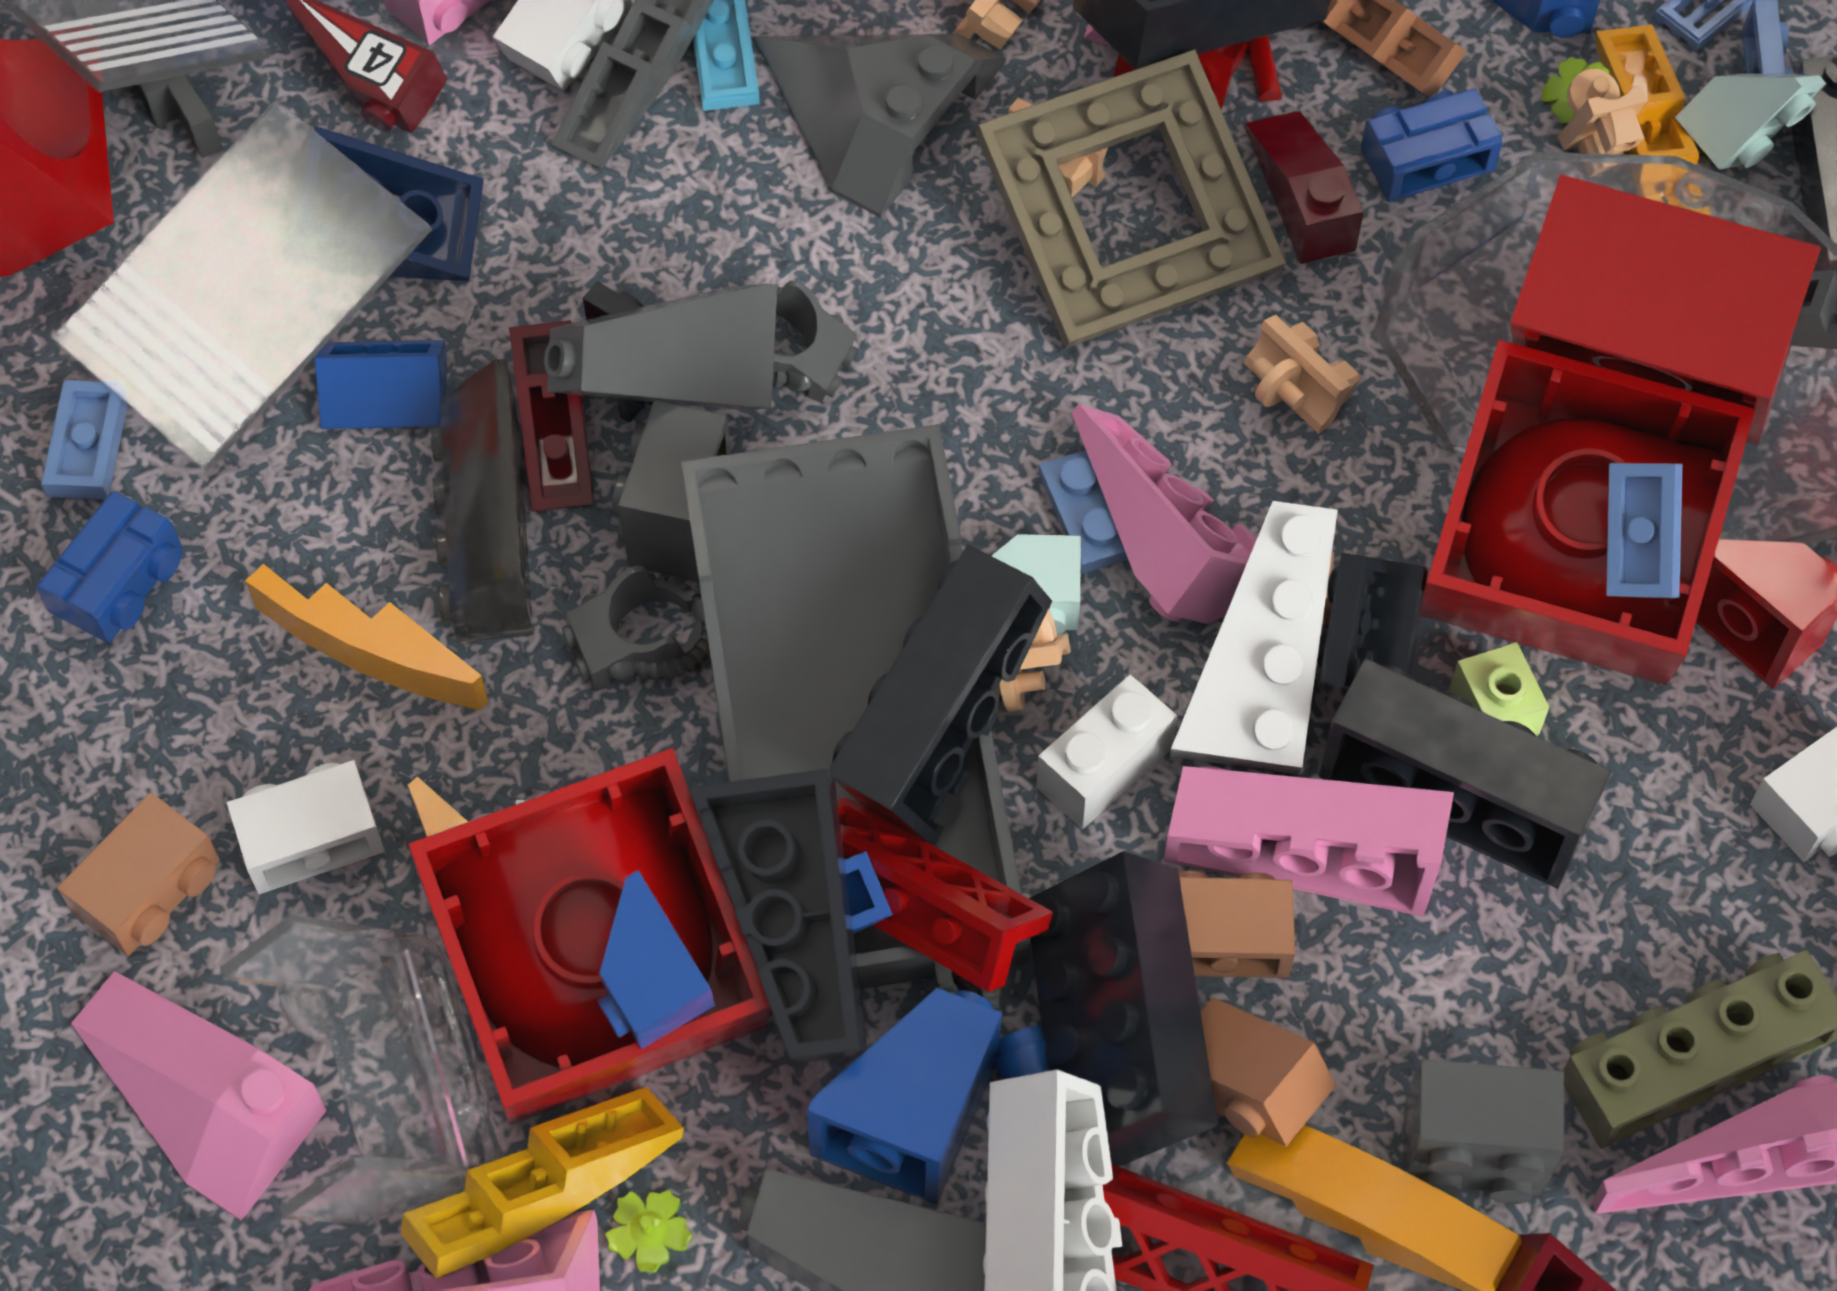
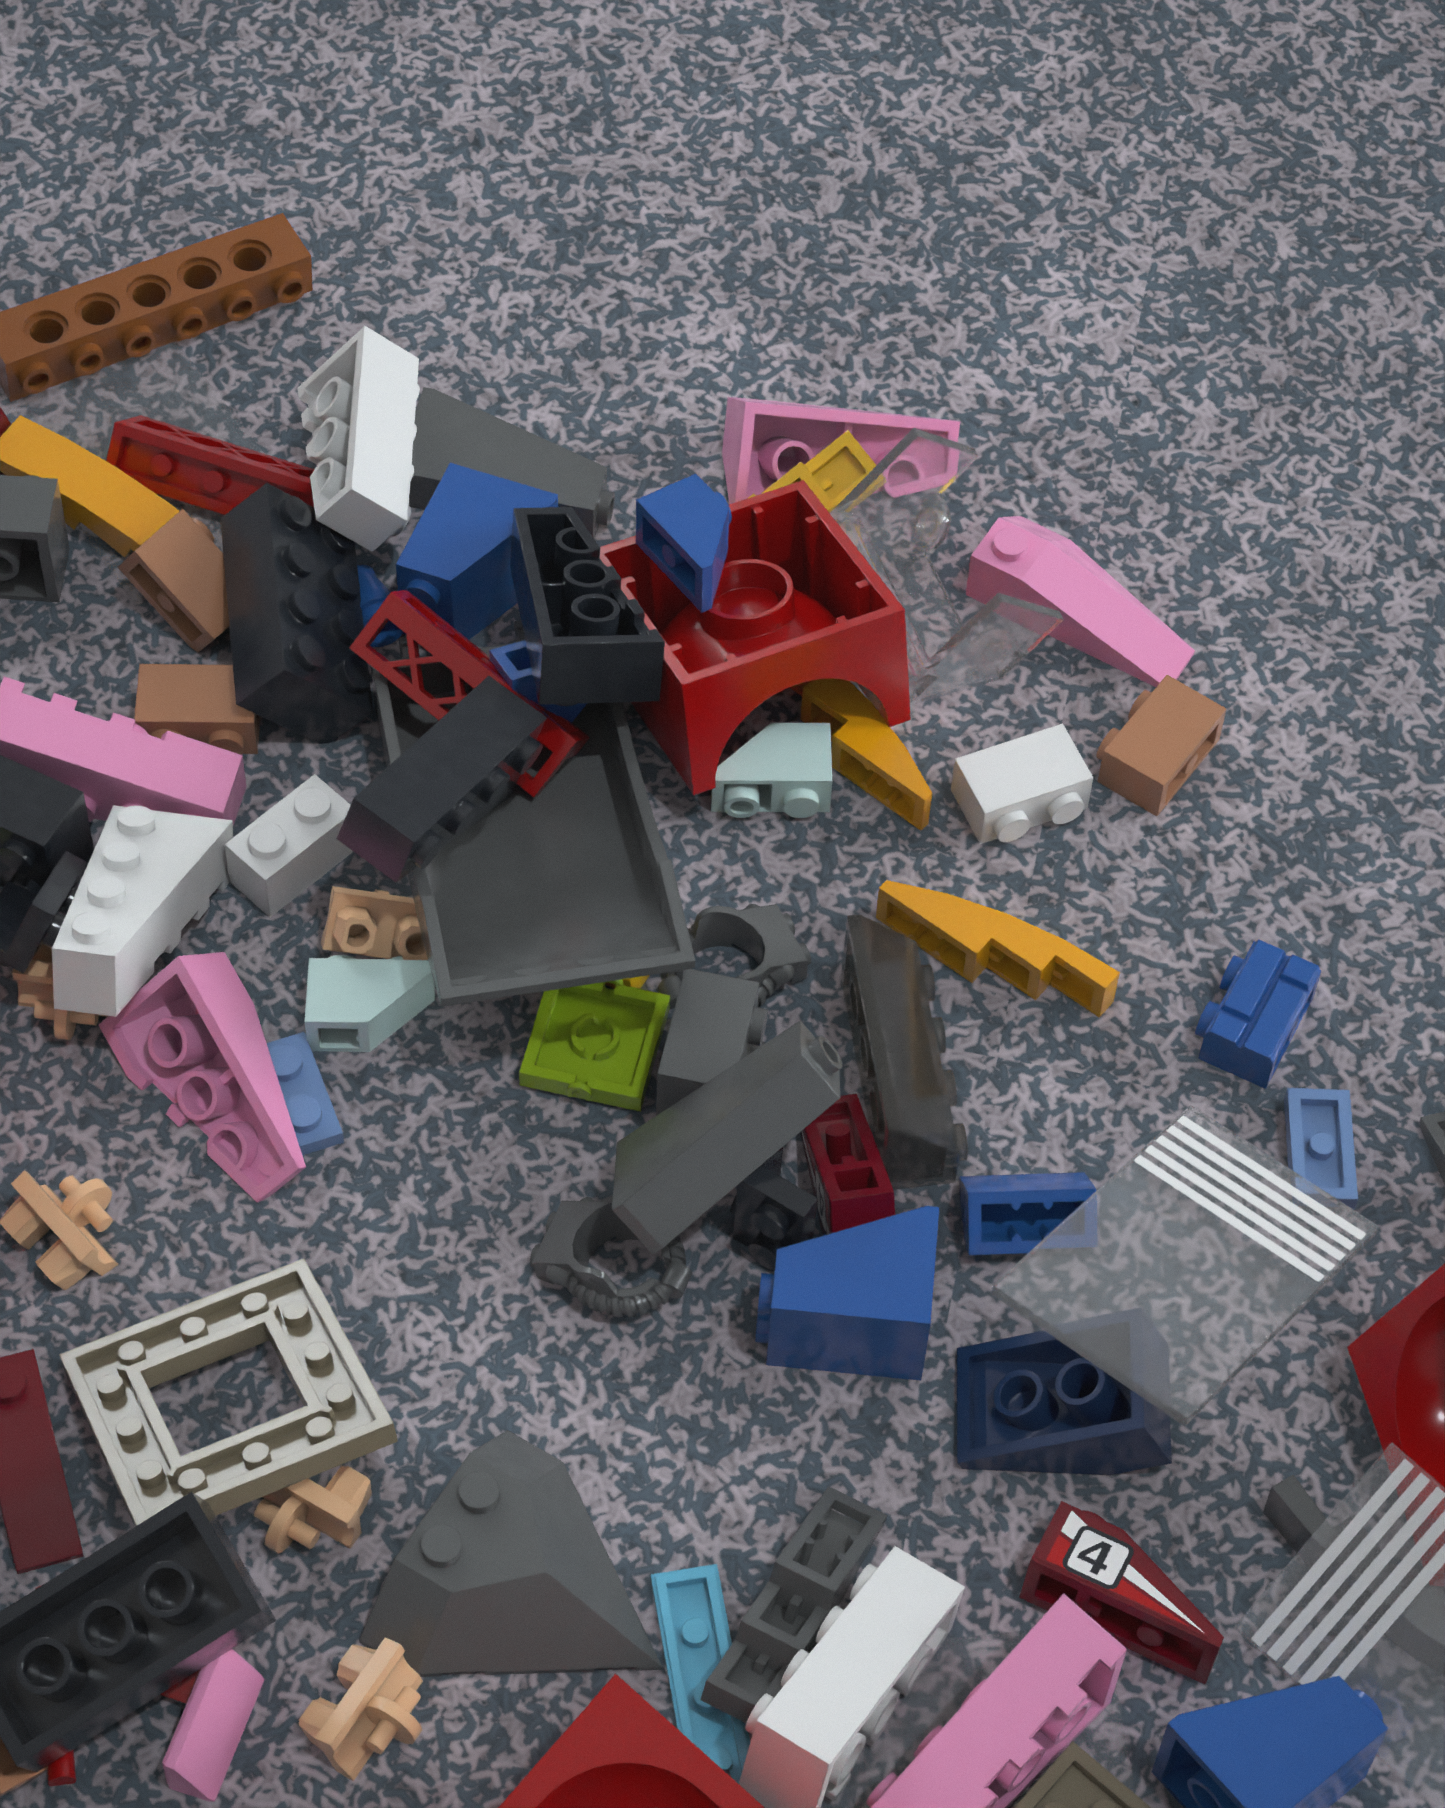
camera: 175 degrees right, 5 degrees down
(546, 254) = (853, 1299): none -> blue slope

